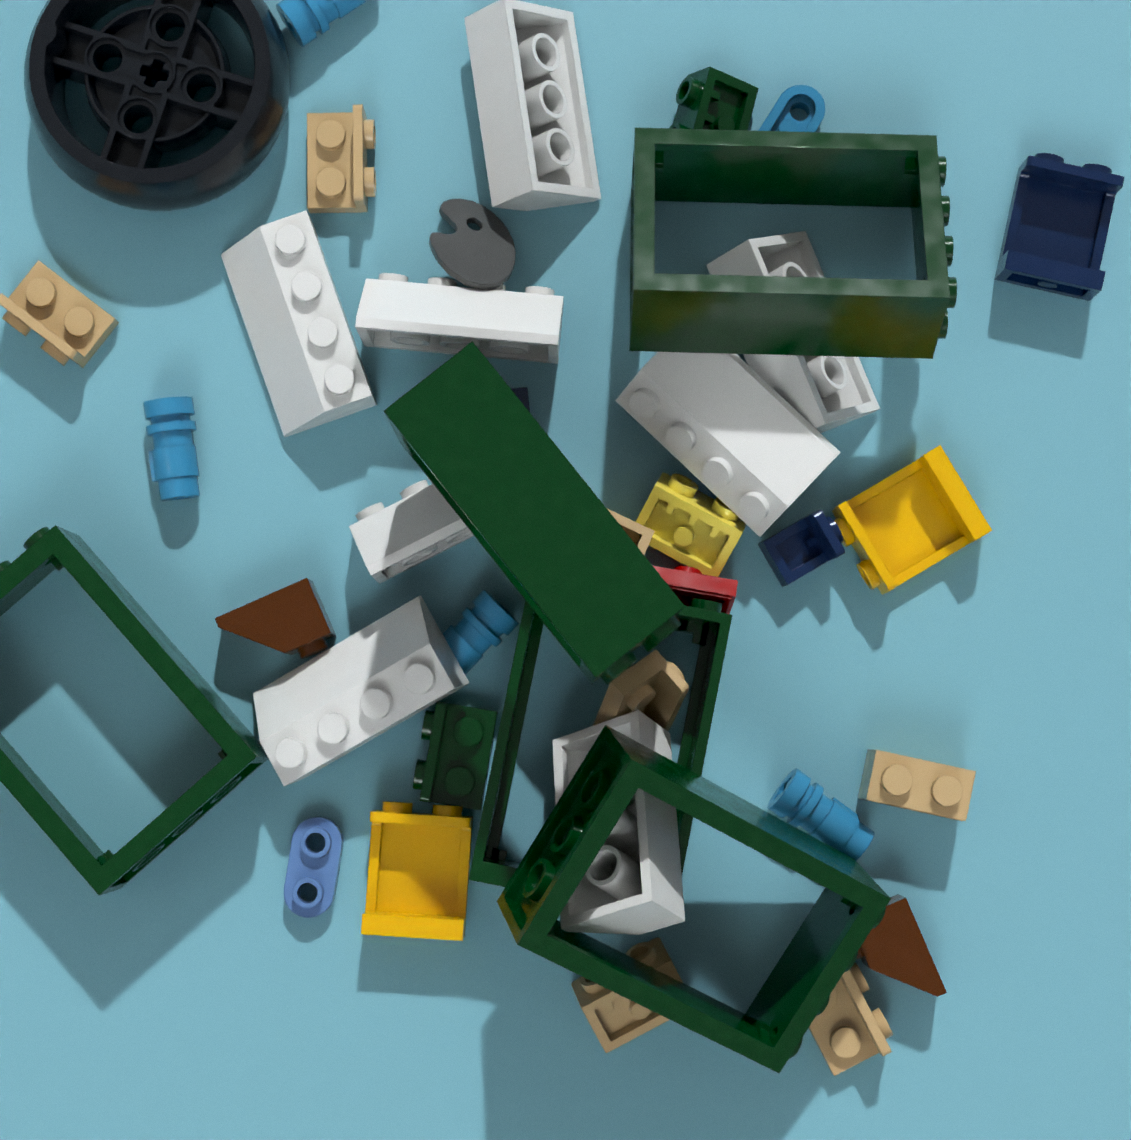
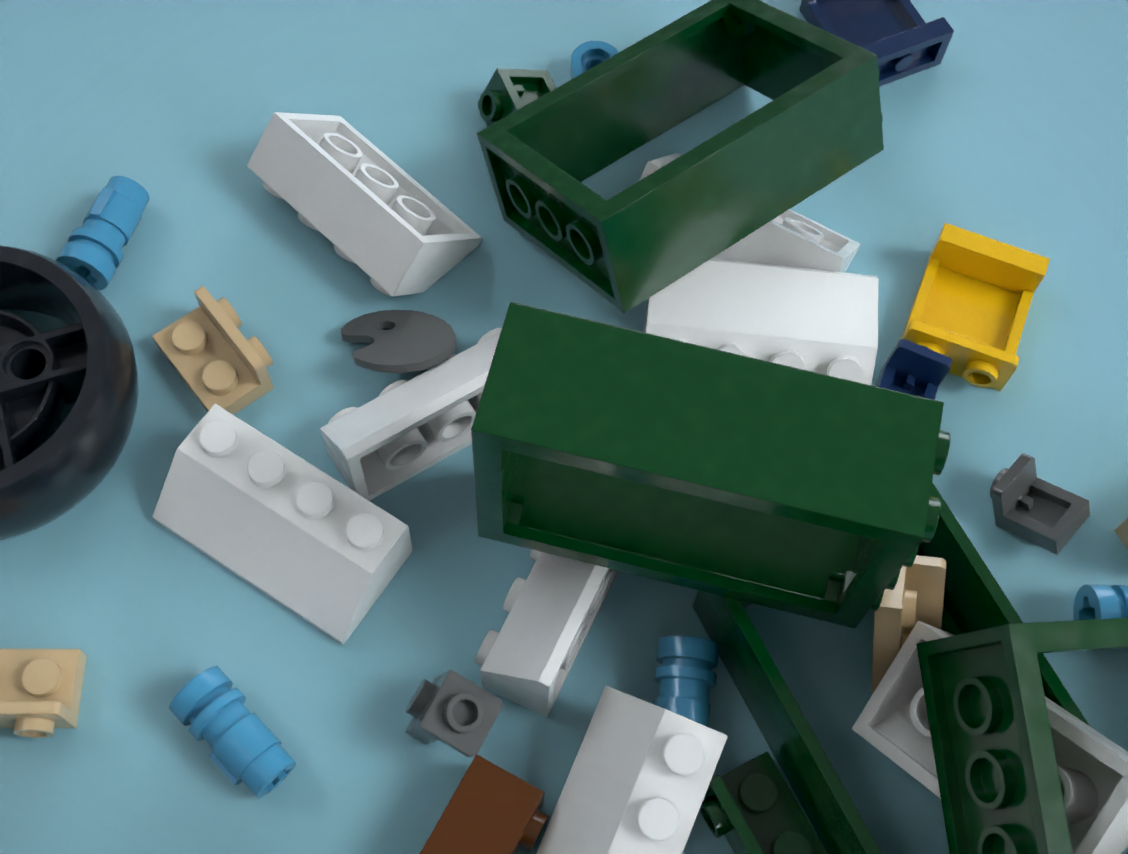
camera: 40 degrees left, 20 degrees down
(313, 539) = (452, 712): none -> dark grey bracket
(817, 693) = (1036, 507): none -> dark grey bracket

